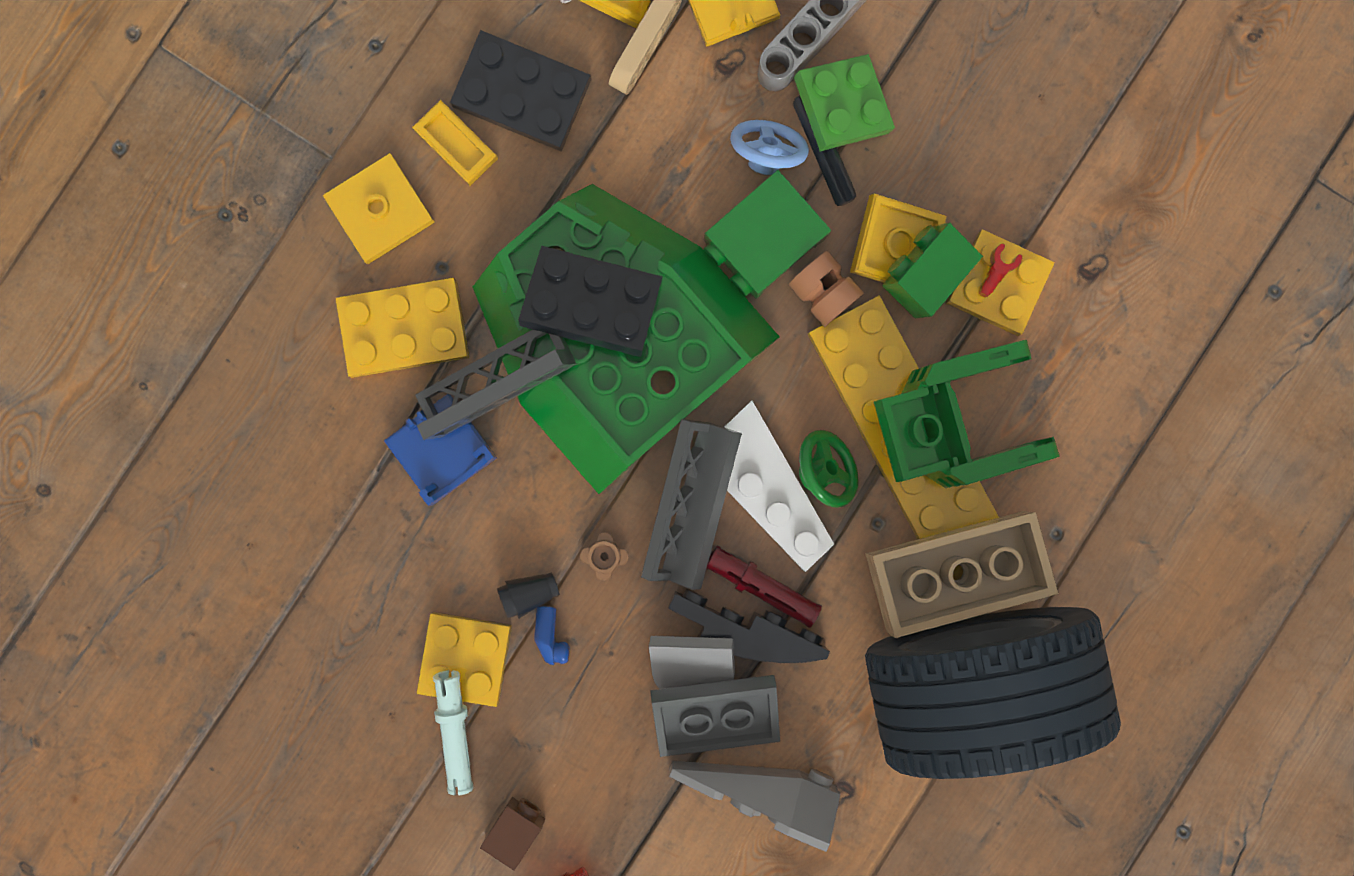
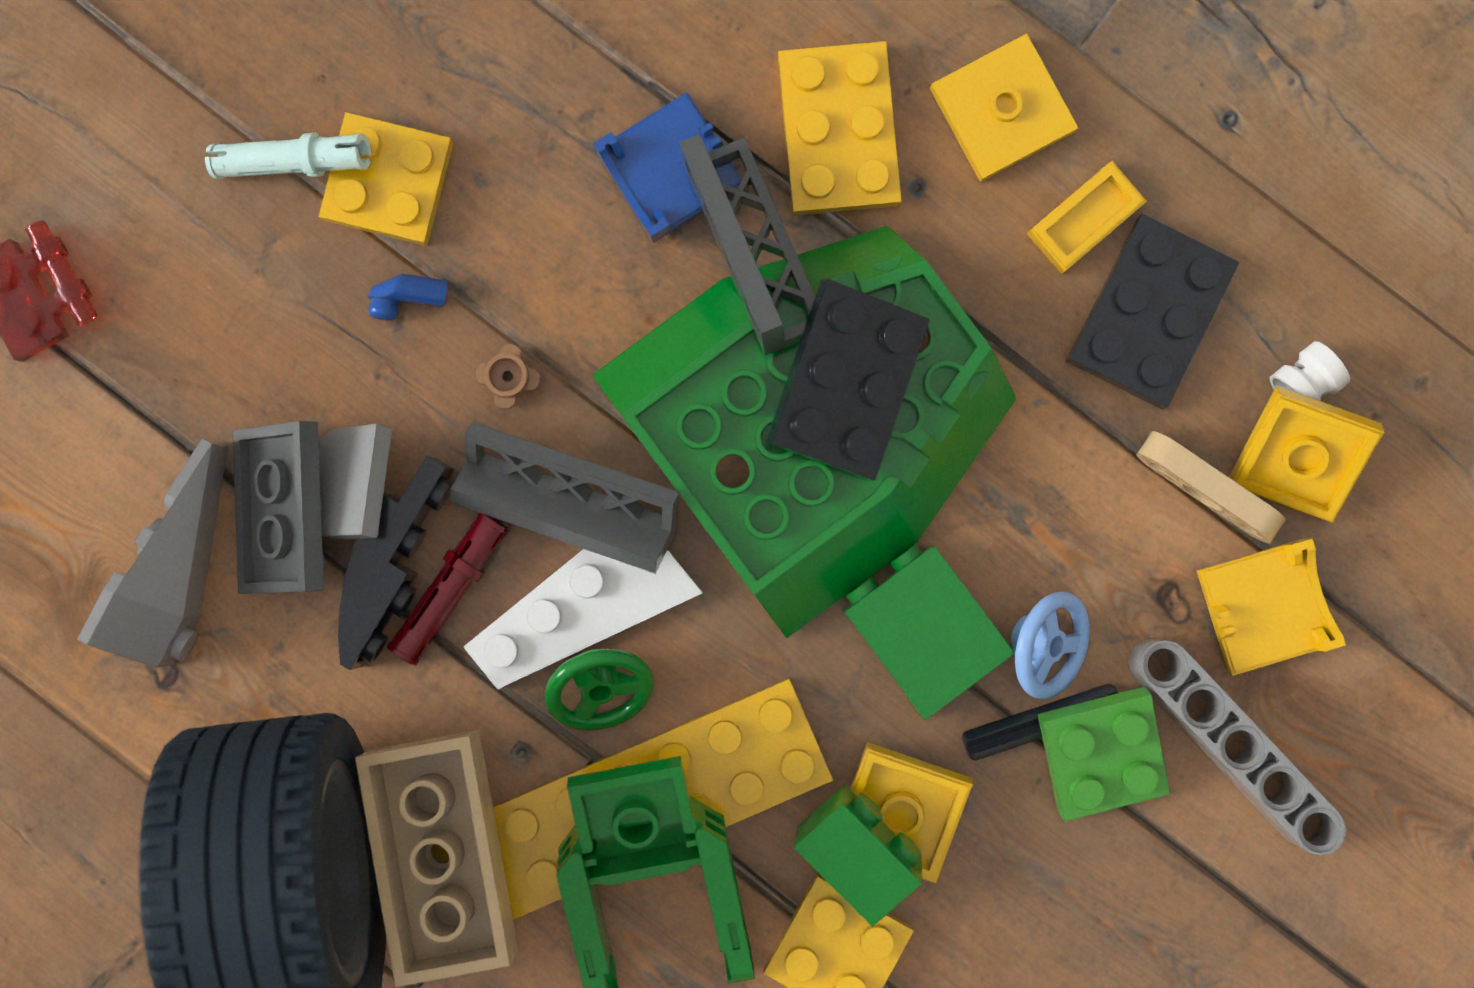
camera: 100 degrees right, 0 degrees up
(513, 832) = (149, 227): reddish brown brick -> none
(527, 594) = (465, 268): black cone -> none
(830, 303) = (829, 719): nougat wheel -> none
(997, 271) = (851, 946): red piece -> none

